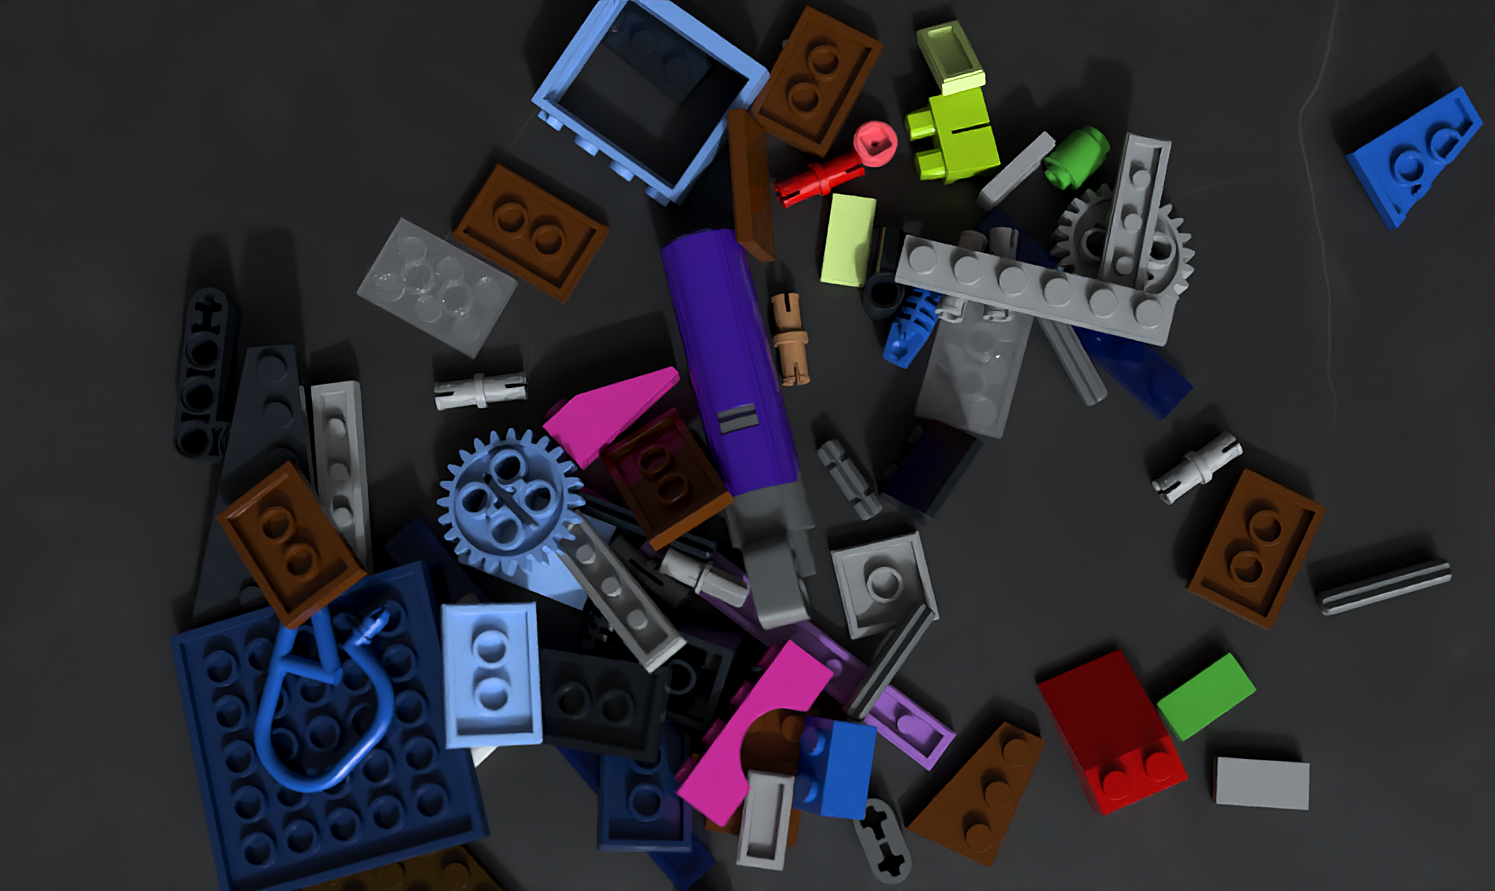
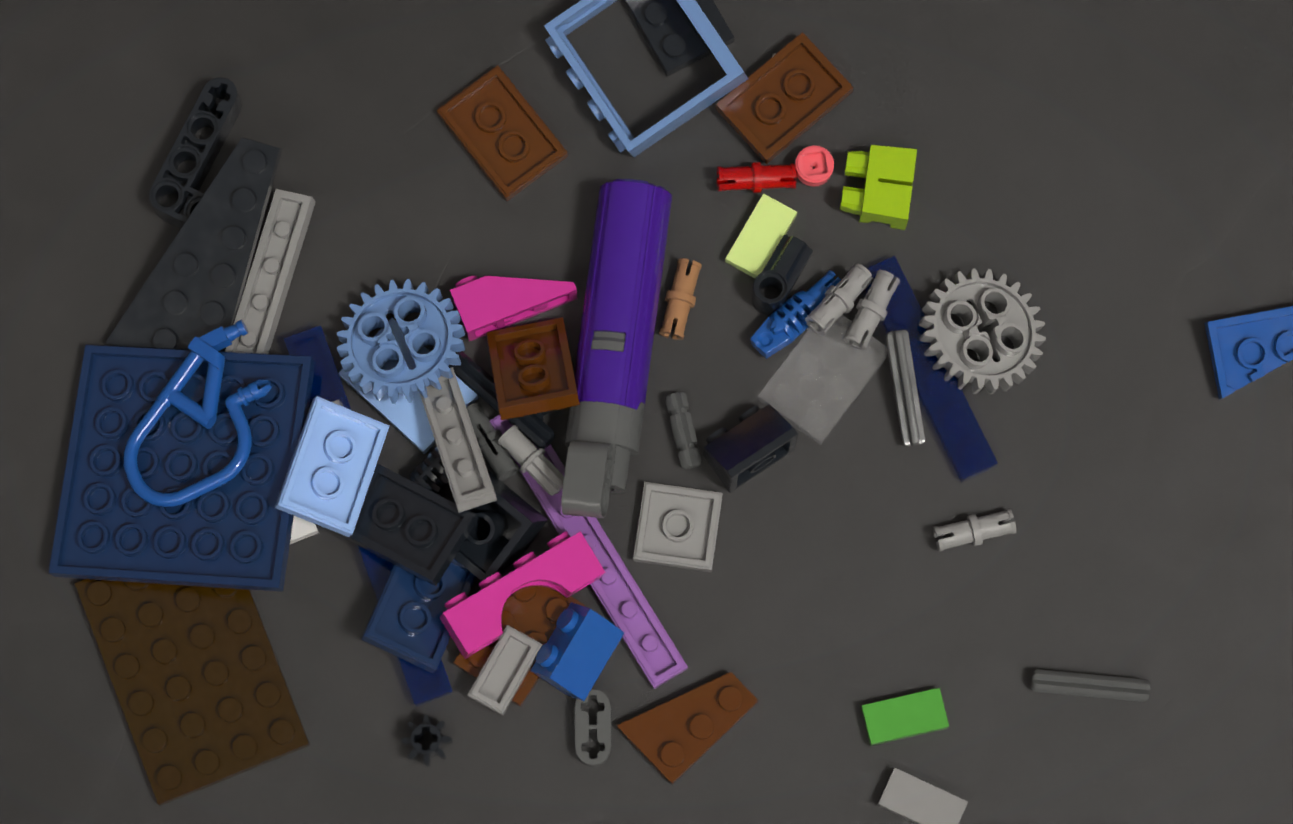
camera: 20 degrees right, 5 degrees down
(291, 545) = (216, 304): reddish brown plate -> none
(437, 288) = (408, 149): clear plate -> none
(481, 390) = (411, 244): light grey pin -> none
(751, 185) = (696, 161): reddish brown tile -> none
(888, 661) = (655, 585): dark grey axle -> none
(950, 57) = (904, 119): yellowish green tile -> none
(1016, 172) = (921, 232): light grey tile -> none
(1035, 290) = (890, 330): light grey plate -> none
(1076, 158) = (976, 240): bright green brick -> none
(1111, 733) = (814, 713): red slope -> none
(1134, 211) = (992, 308): light grey tile -> none
(1255, 549) = (994, 613): reddish brown plate -> none

